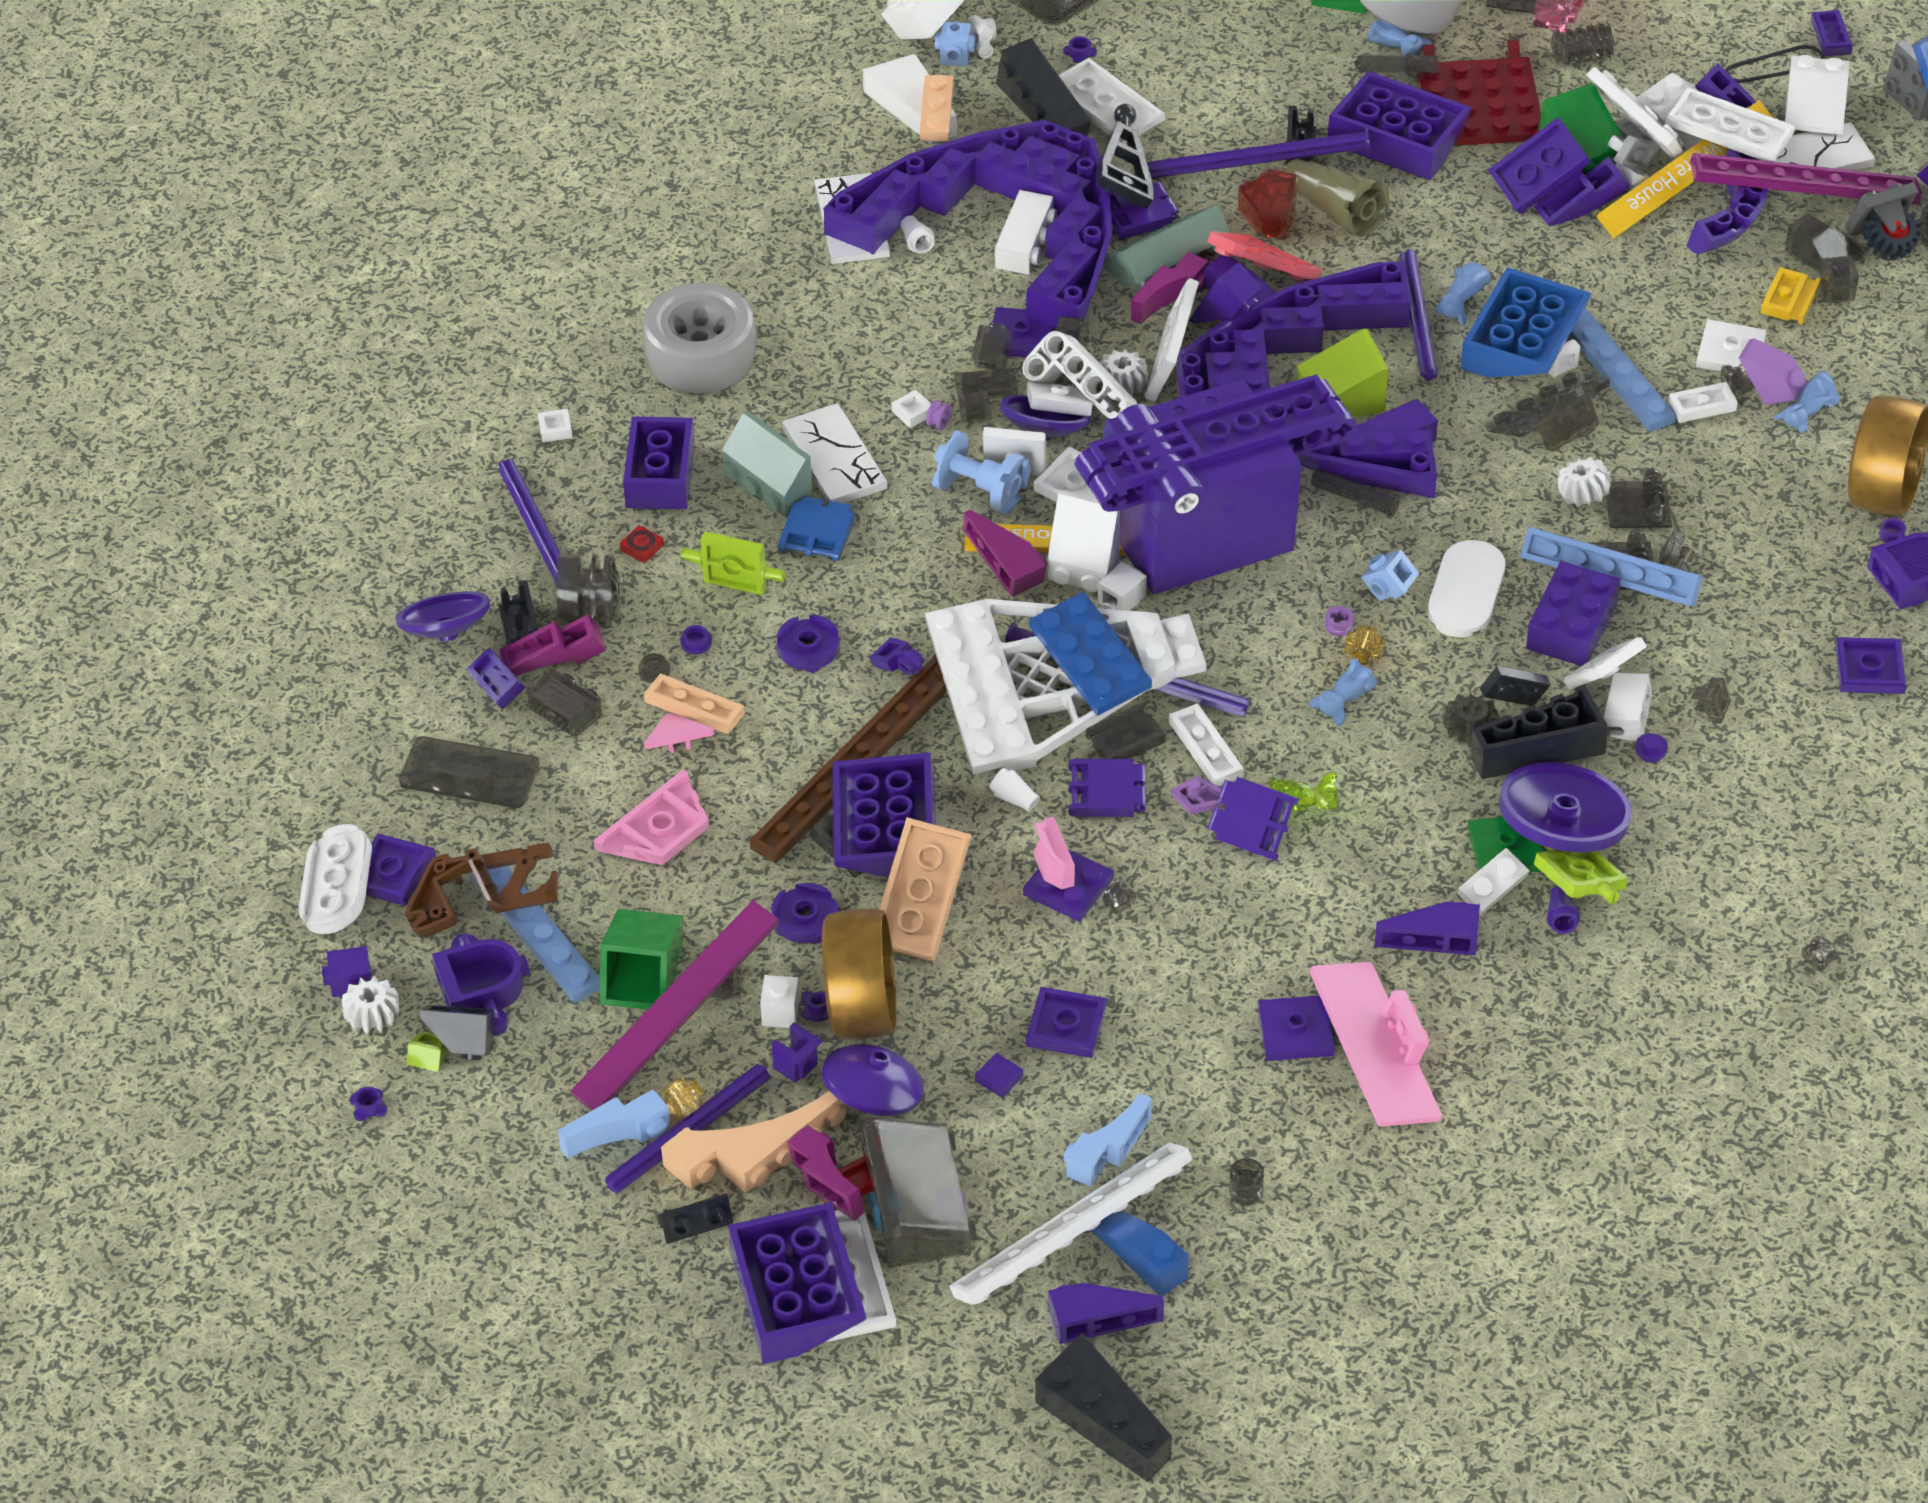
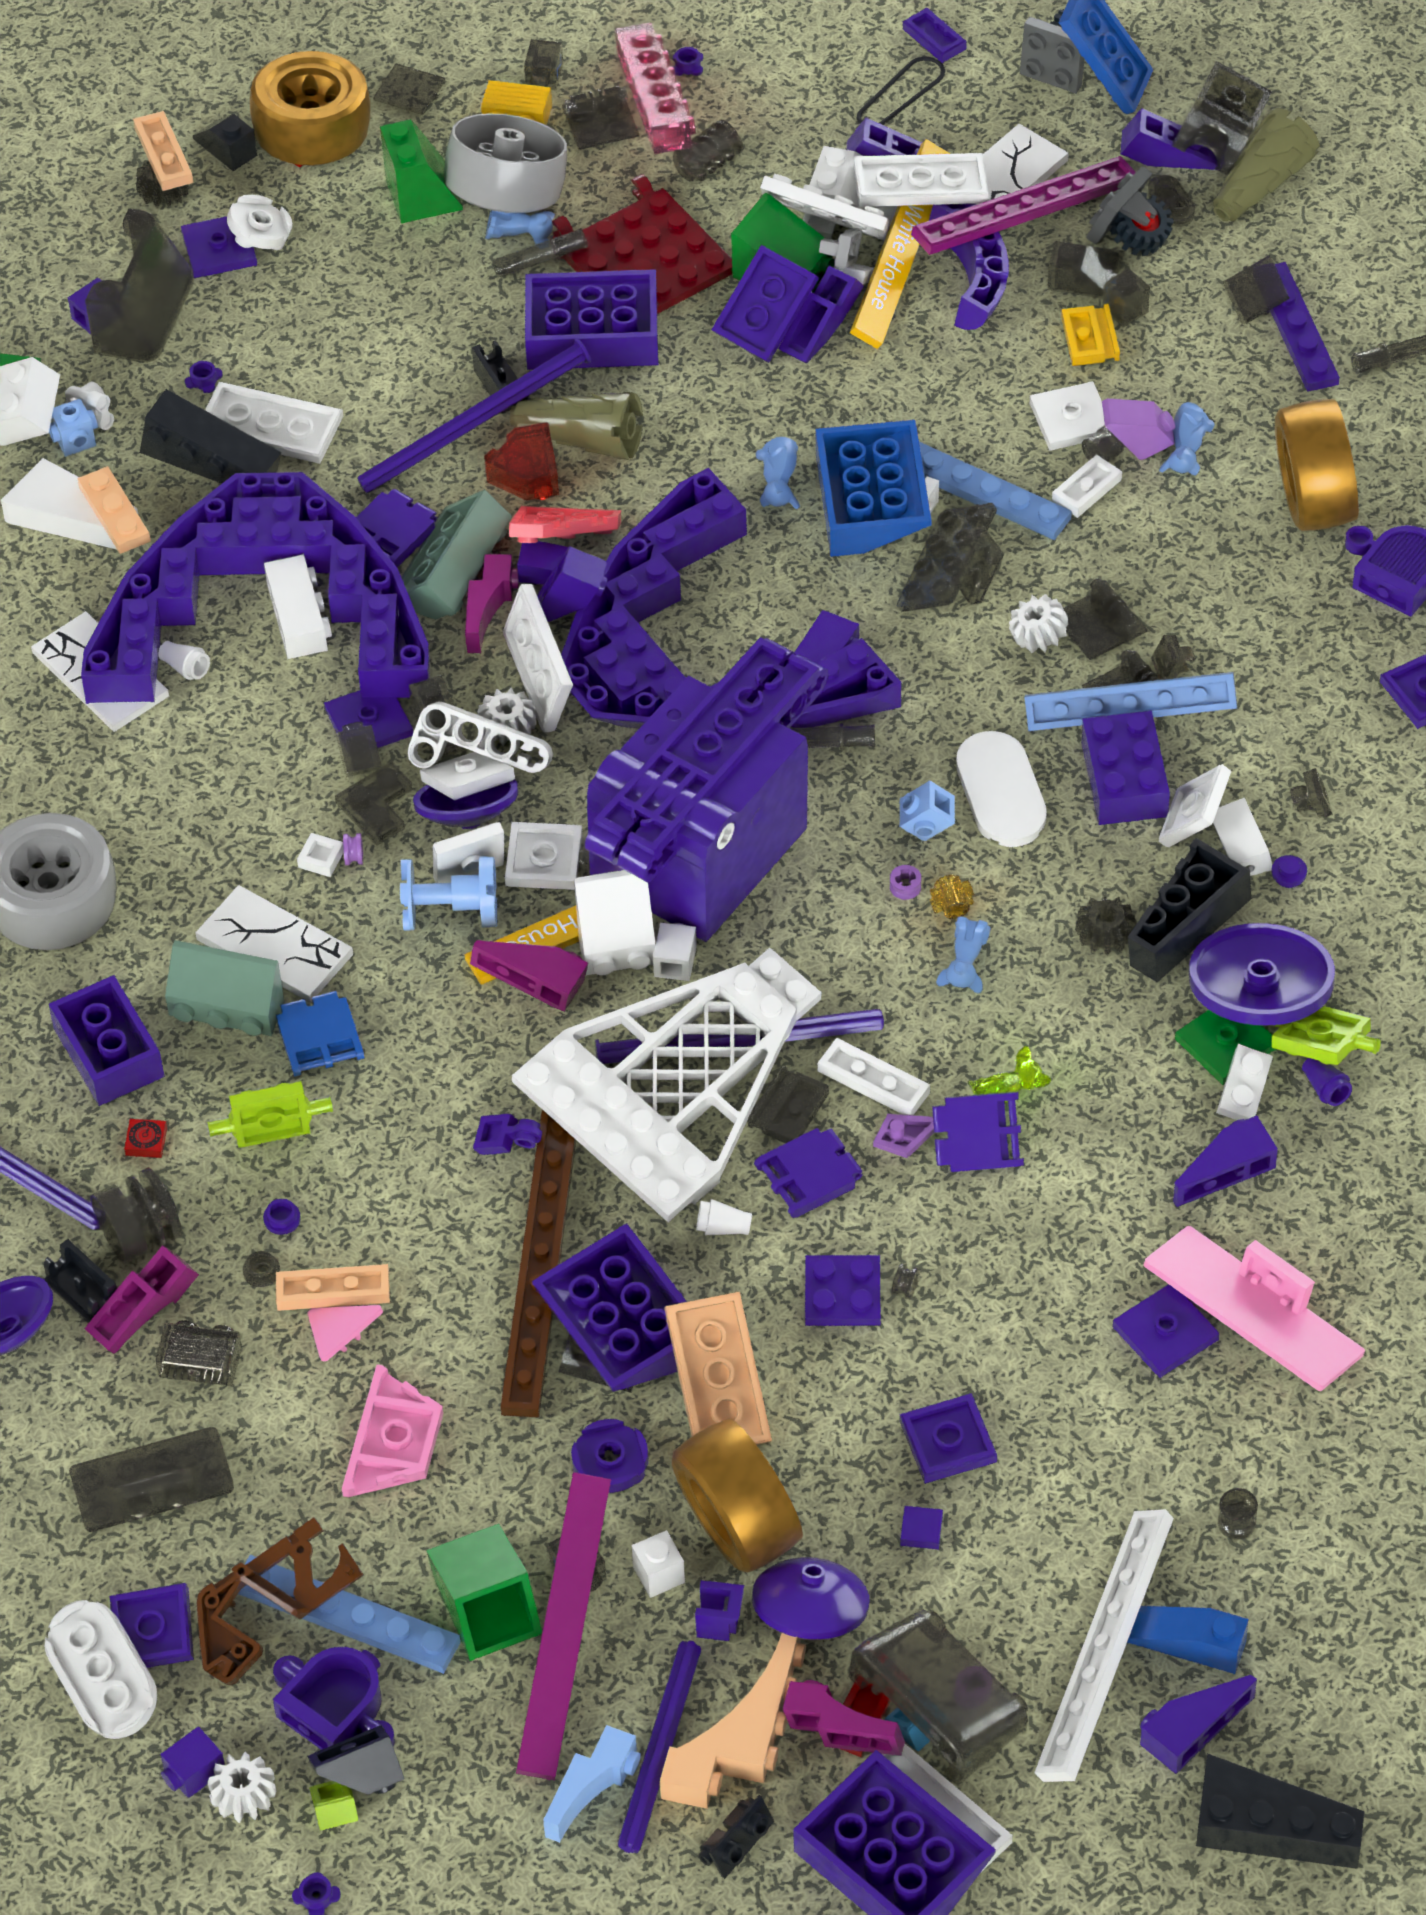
camera: 30 degrees left, 5 degrees up
(495, 678) = (105, 1362): dark purple plate -> none
(682, 1097) = (635, 1716): clear yellow gear -> none
(812, 1011) = (695, 1557): dark purple plate -> none
(813, 656) = (400, 1180): dark purple plate -> none
(1053, 855) = (821, 1270): bright pink slope -> none
(1090, 653) = (708, 1038): blue plate -> none
(1109, 1144) = (1083, 1546): light blue slope -> none
(1135, 189) = (376, 507): black plate -> none
(1353, 371) = (733, 618): lime slope -> none
(1419, 318) = (758, 525): dark purple axle -> none
(1515, 686) = (1130, 871): black plate -> none
(1817, 94) = (971, 109): white slope -> none

